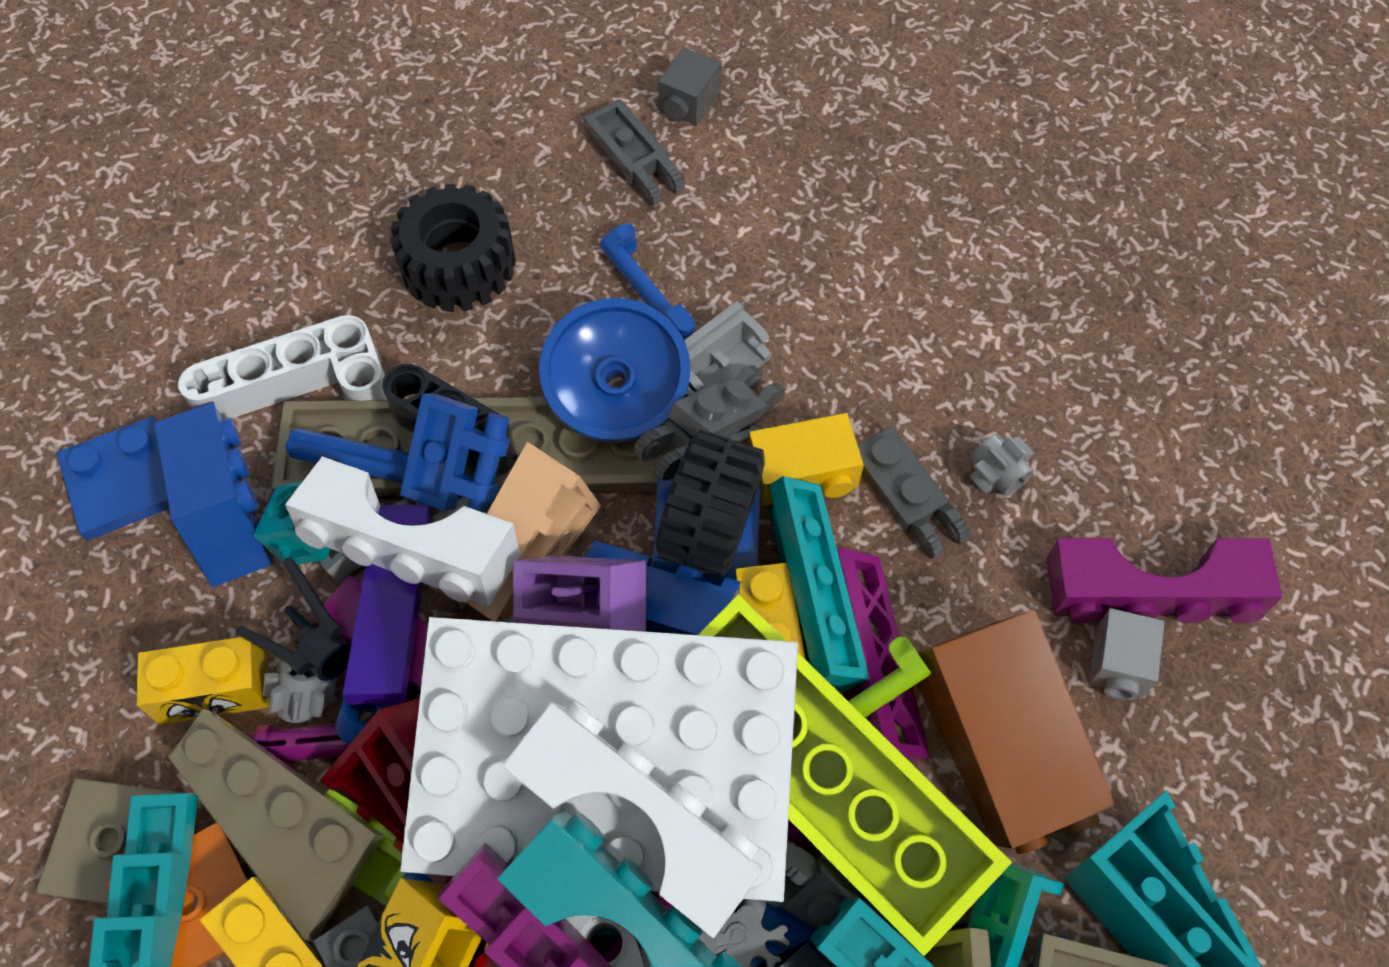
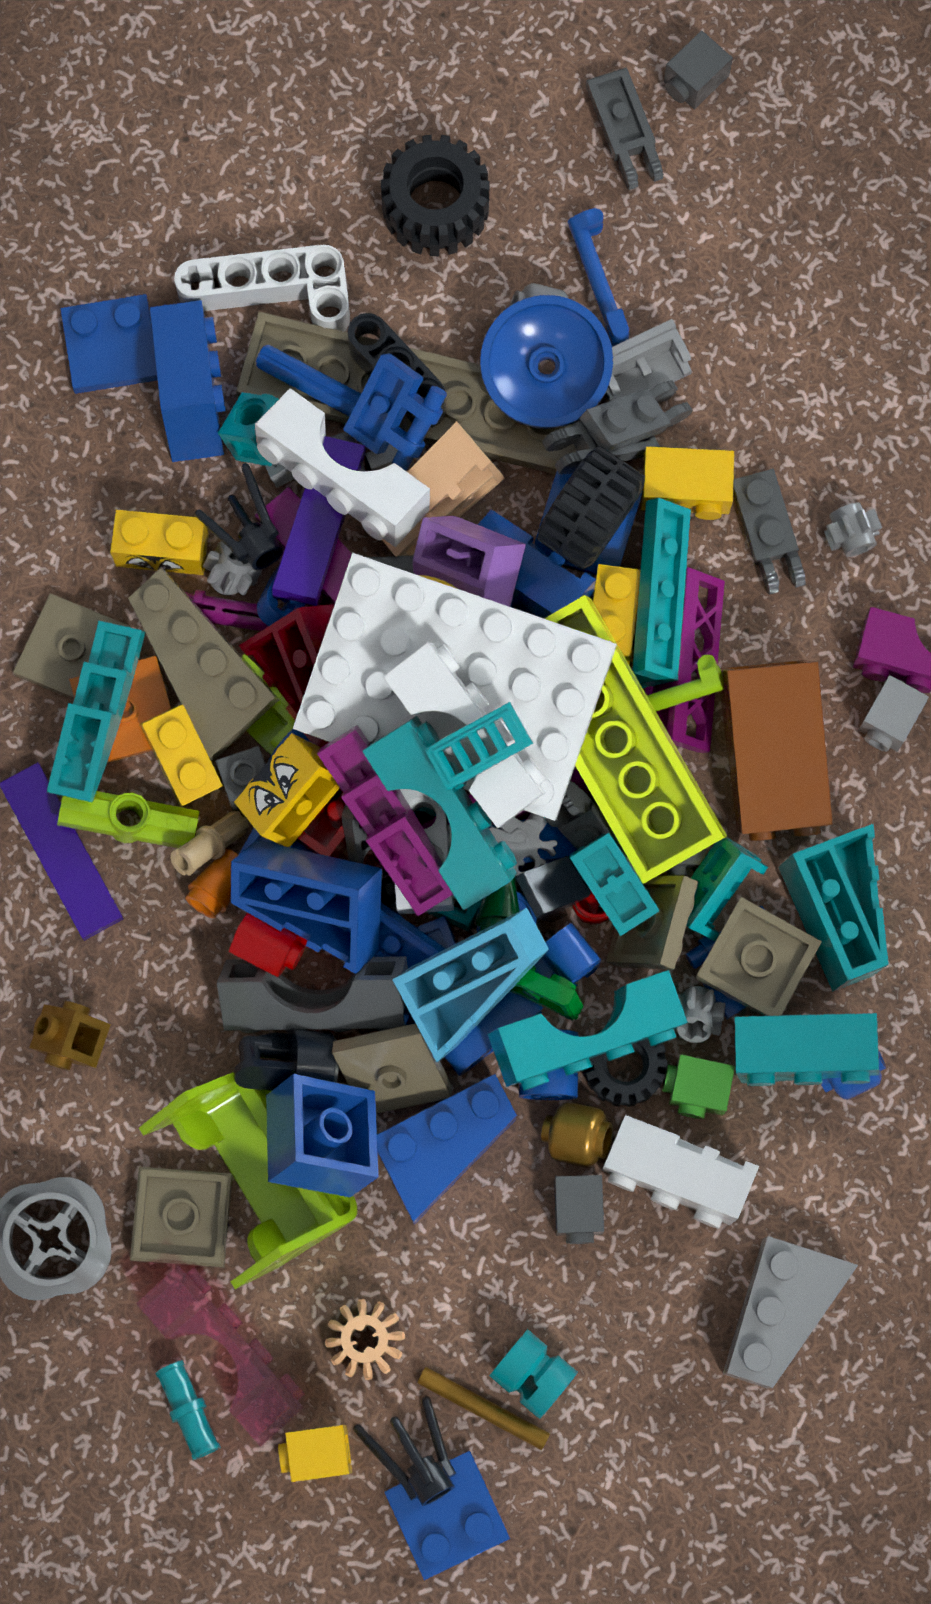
camera: 15 degrees right, 15 degrees up
(614, 870) = (443, 766): none -> teal slope

